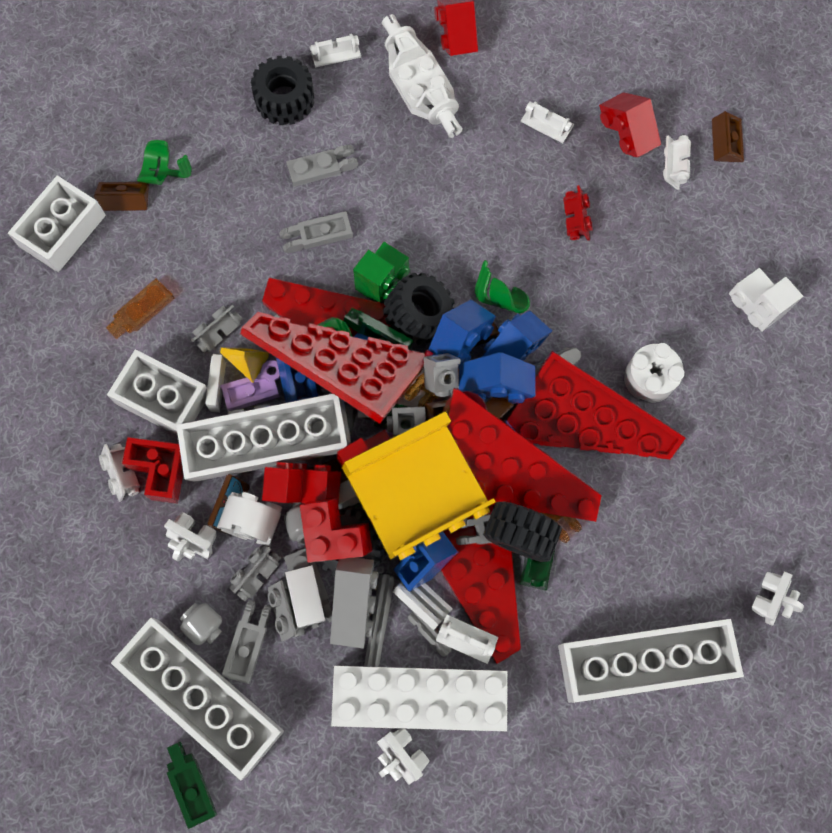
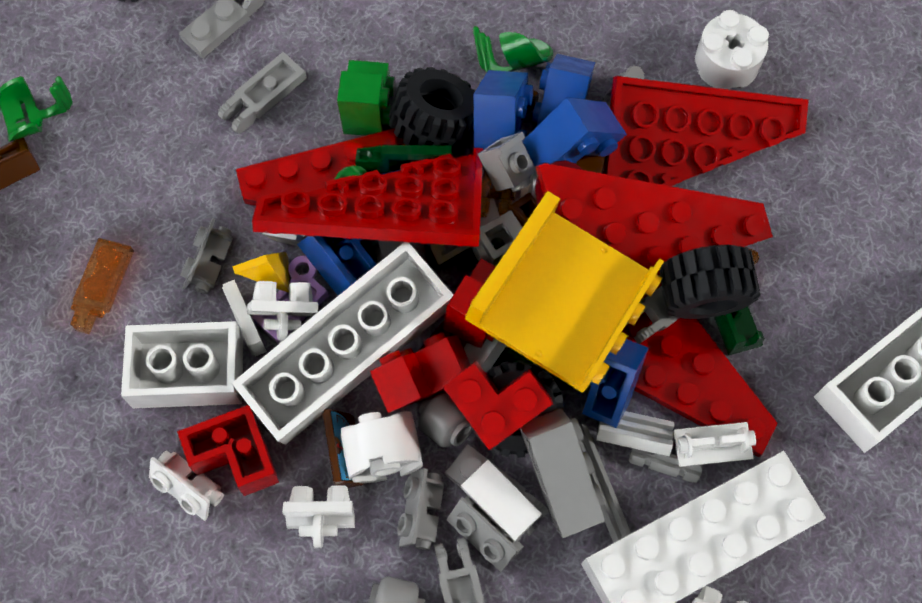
camera: 25 degrees left, 5 degrees down
(252, 394) = (265, 303): none -> white hips

